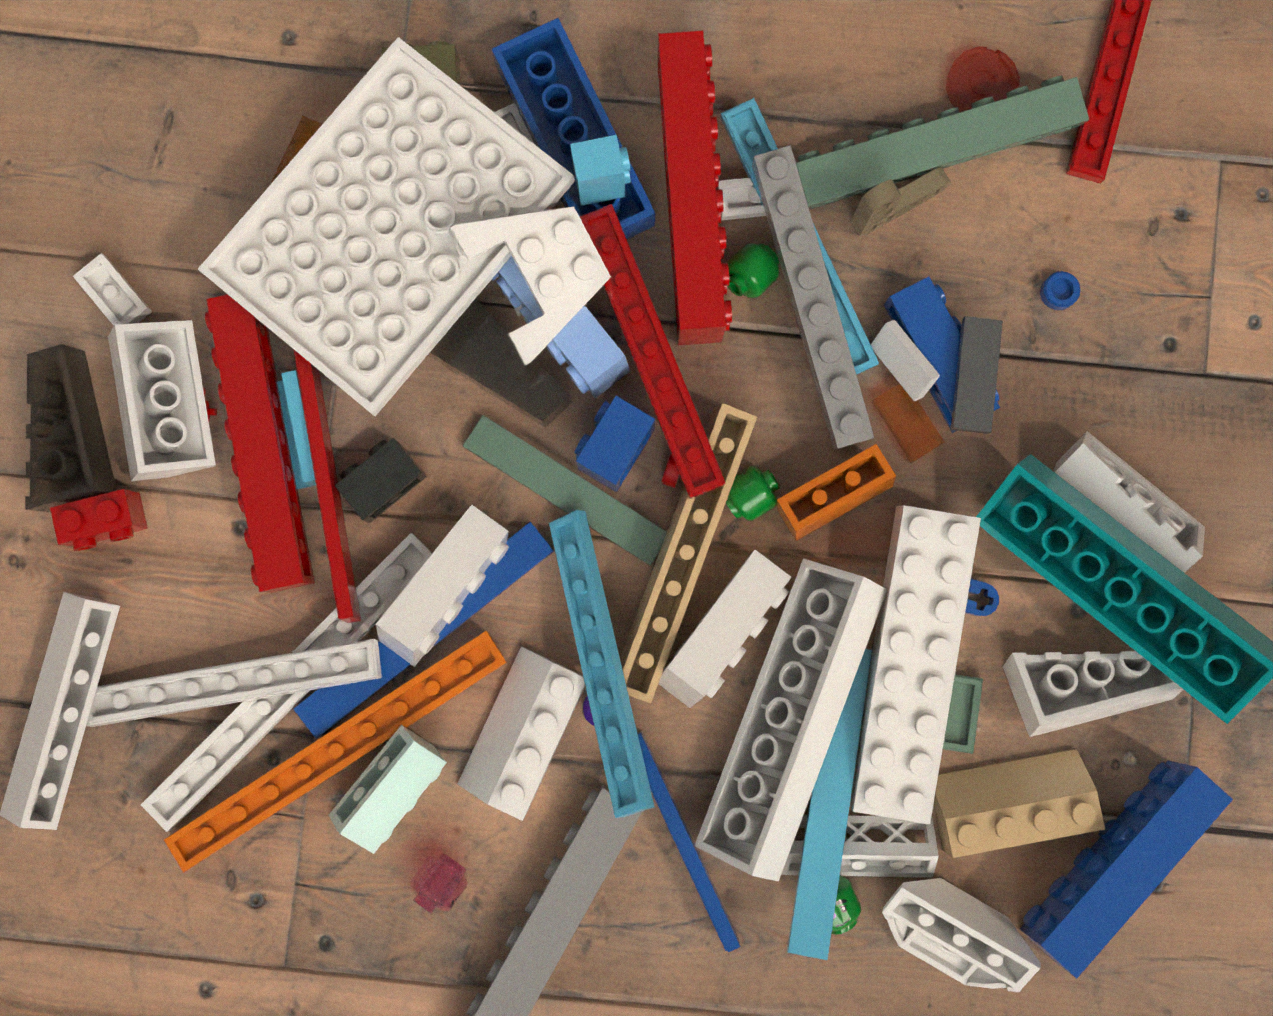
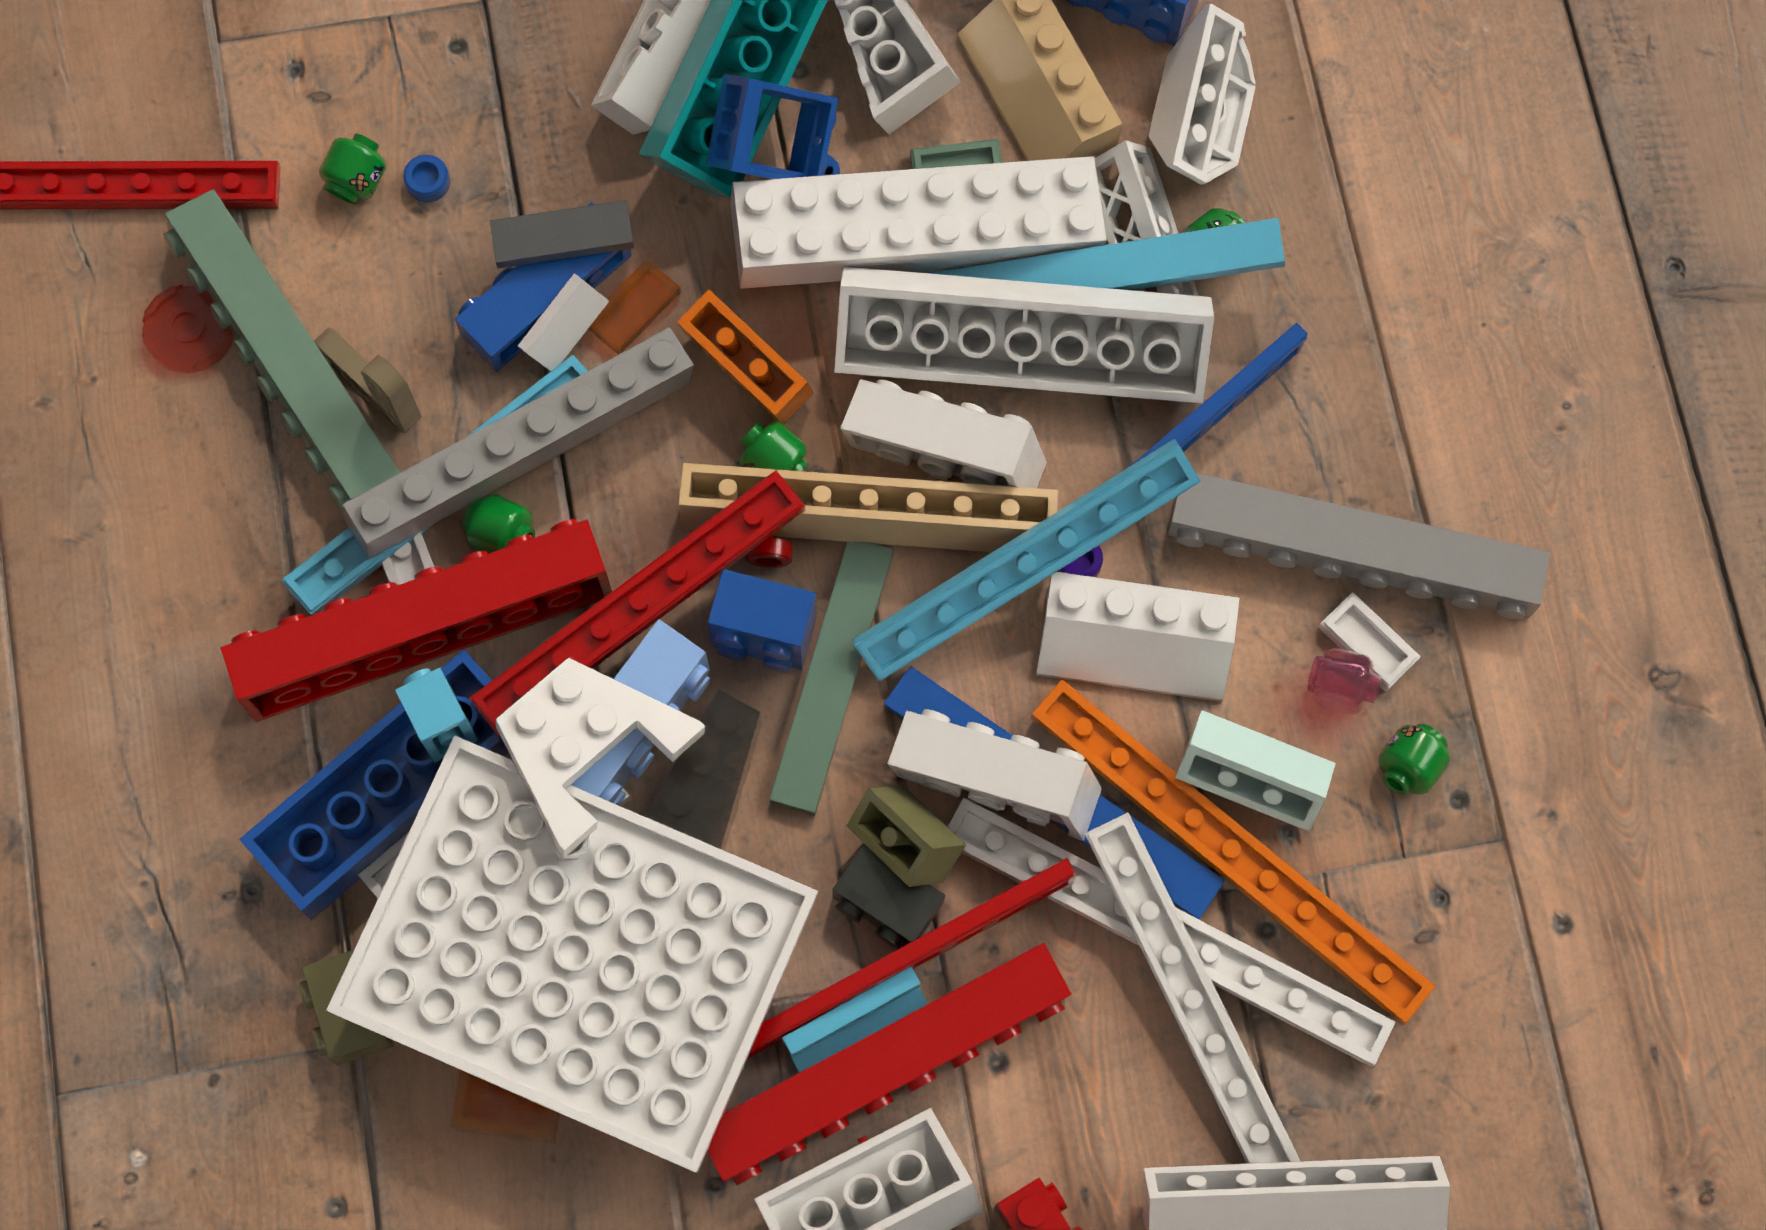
camera: 110 degrees left, 10 degrees down
(361, 917) = (1414, 759): none -> green head
(416, 503) = (905, 835): none -> olive brick
(469, 916) = (1362, 631): none -> white tile
(1029, 533) = (737, 122): none -> blue window
(1081, 233) = (352, 168): none -> green head

